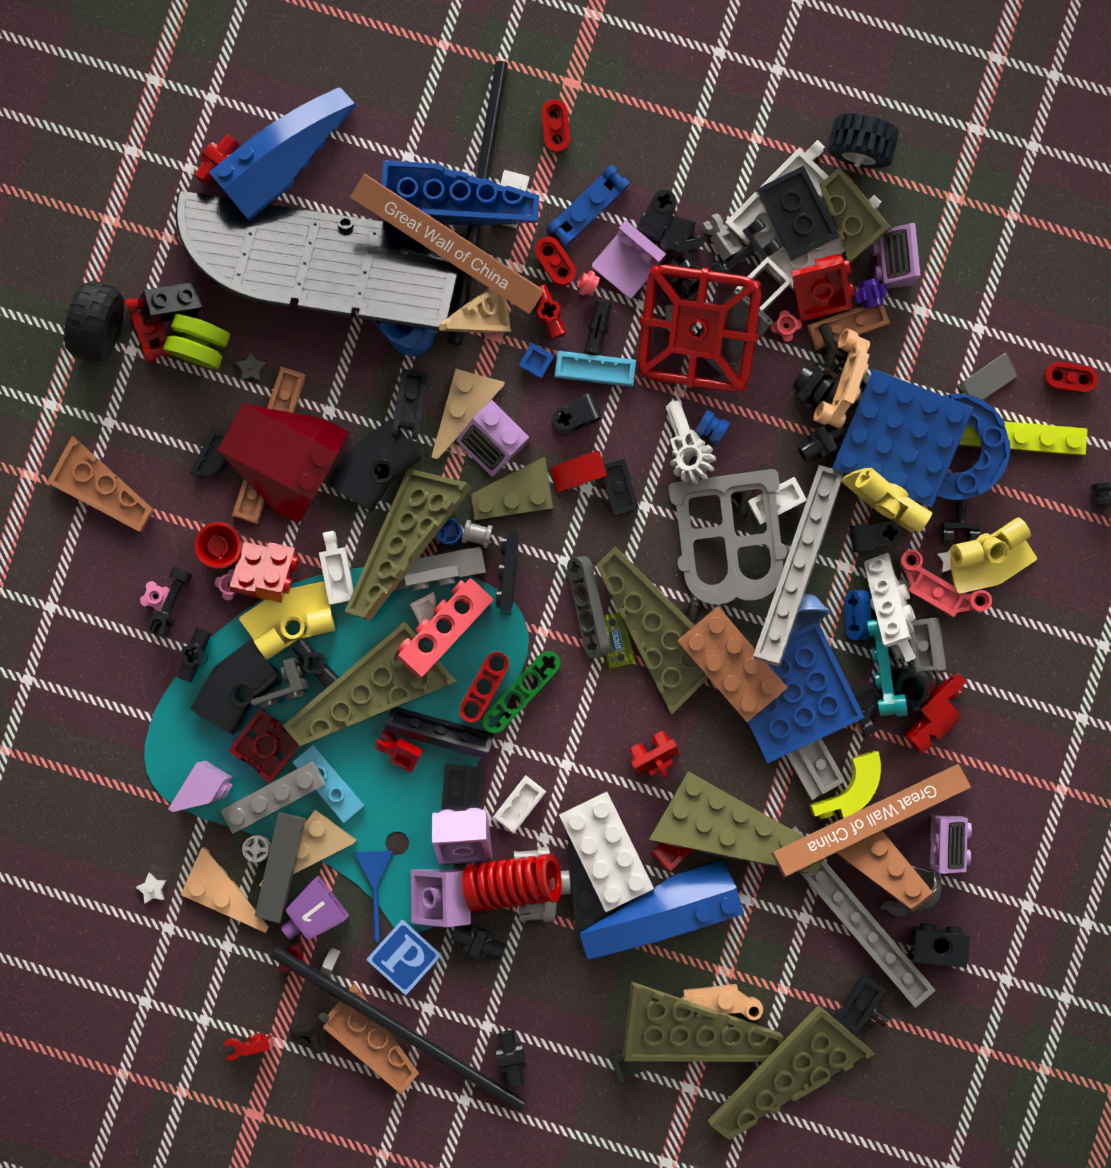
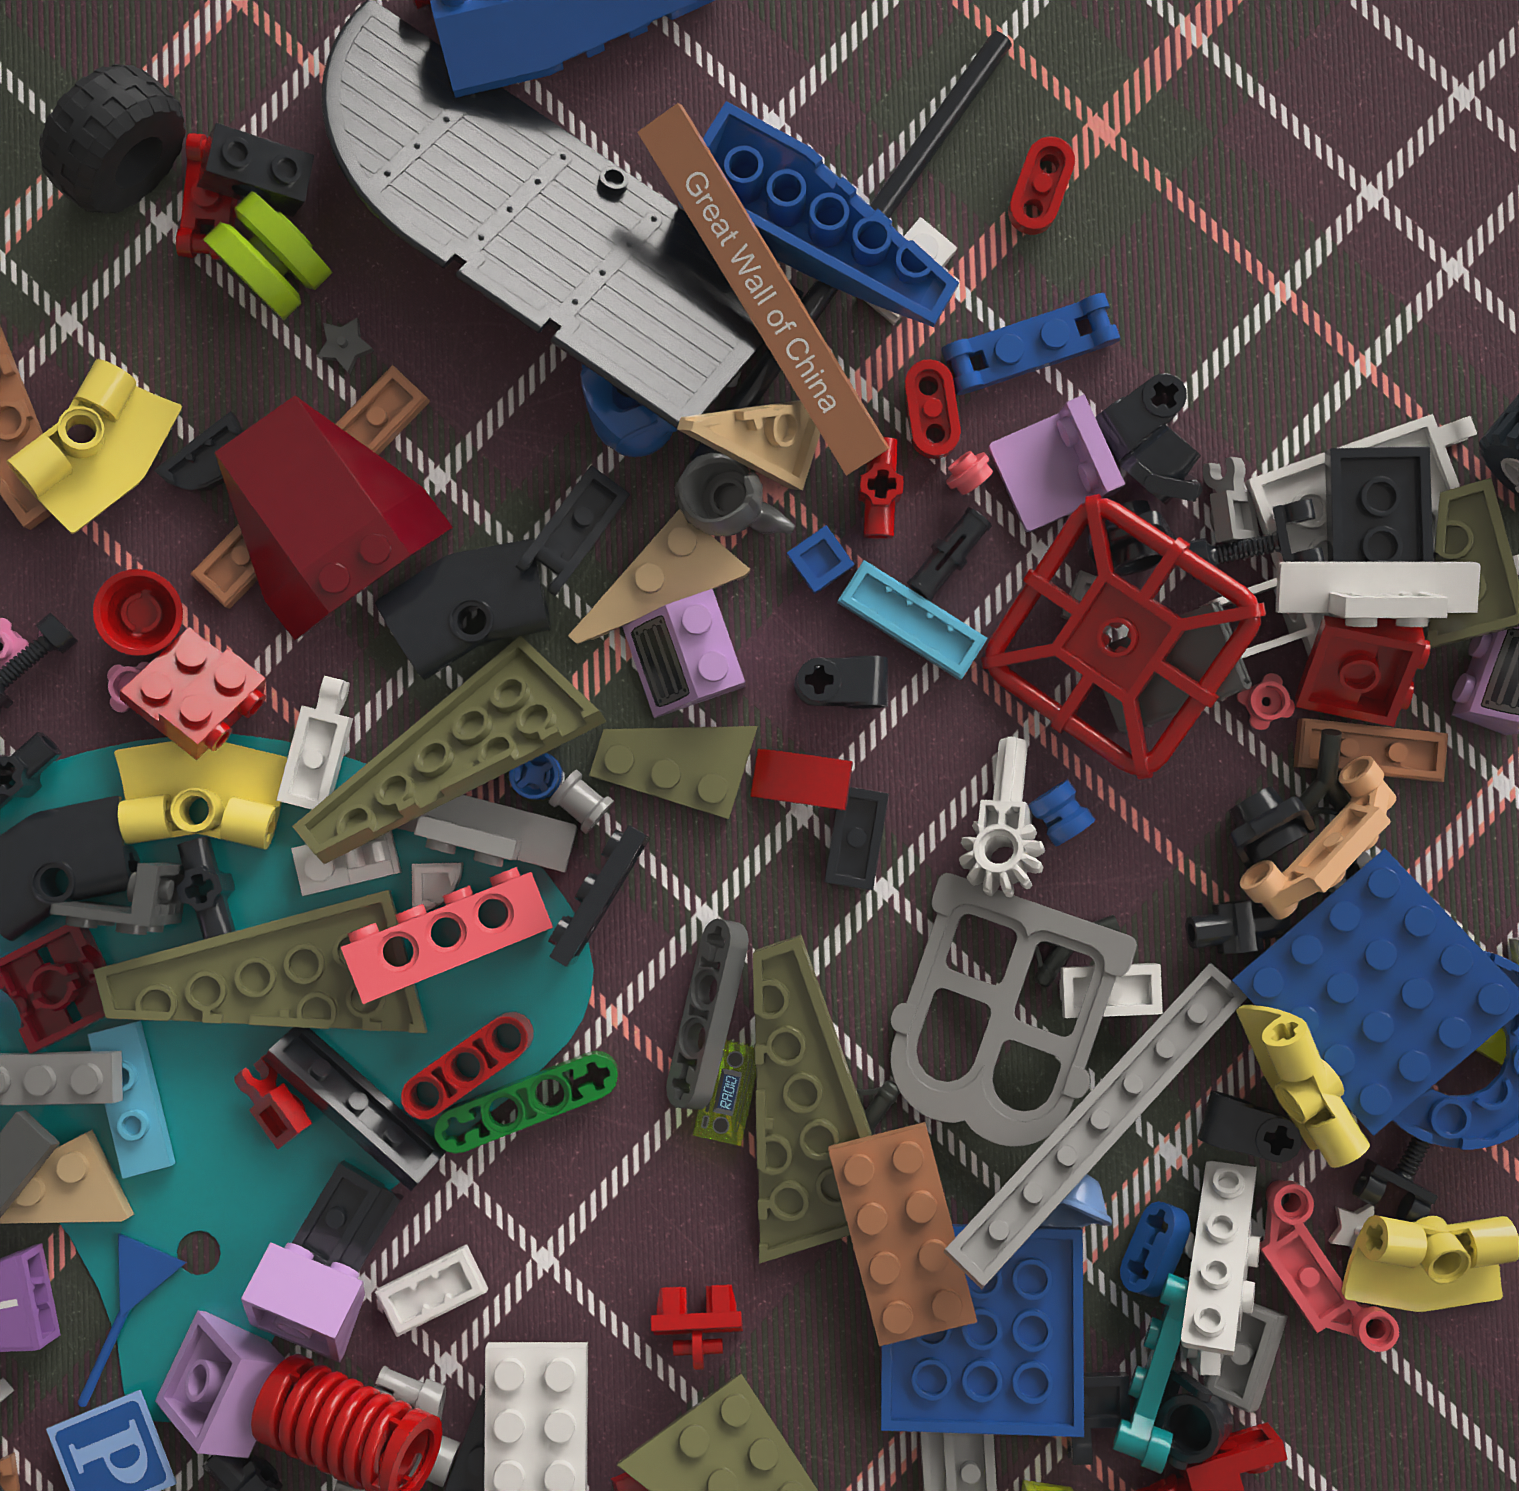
camera: 25 degrees right, 0 degrees up
(158, 494) = (87, 478): none -> light yellow panel
(385, 616) = (362, 864): none -> white plate
(476, 353) = (726, 498): none -> dark grey hair
(810, 246) = (1378, 590): none -> white bracket
(871, 293) = (1438, 717): dark purple gear -> none

